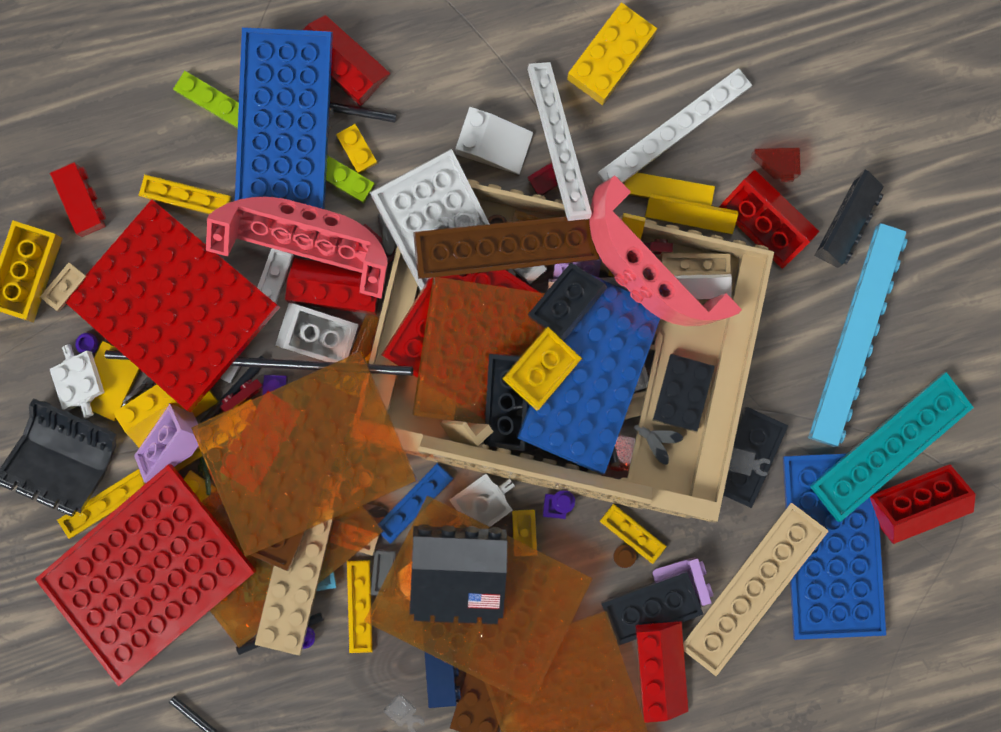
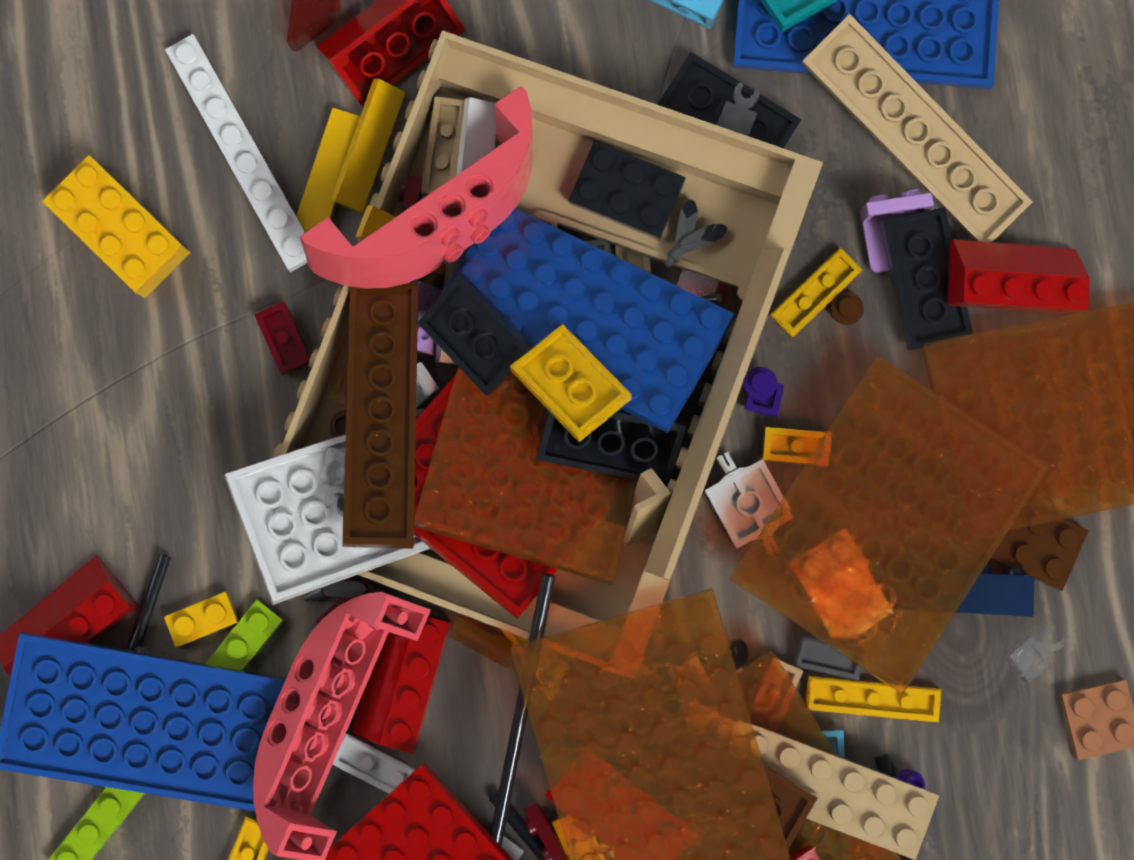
camera: 85 degrees left, 0 degrees up
(273, 382) = (534, 784): dark purple plate -> none
(316, 334) = (470, 713): white slope -> none
(410, 505) = (733, 600): blue tile -> none
(458, 574) = (851, 546): black hinge -> none
(493, 141) = (220, 416): white slope -> none
(559, 142) = (236, 317): white plate -> none

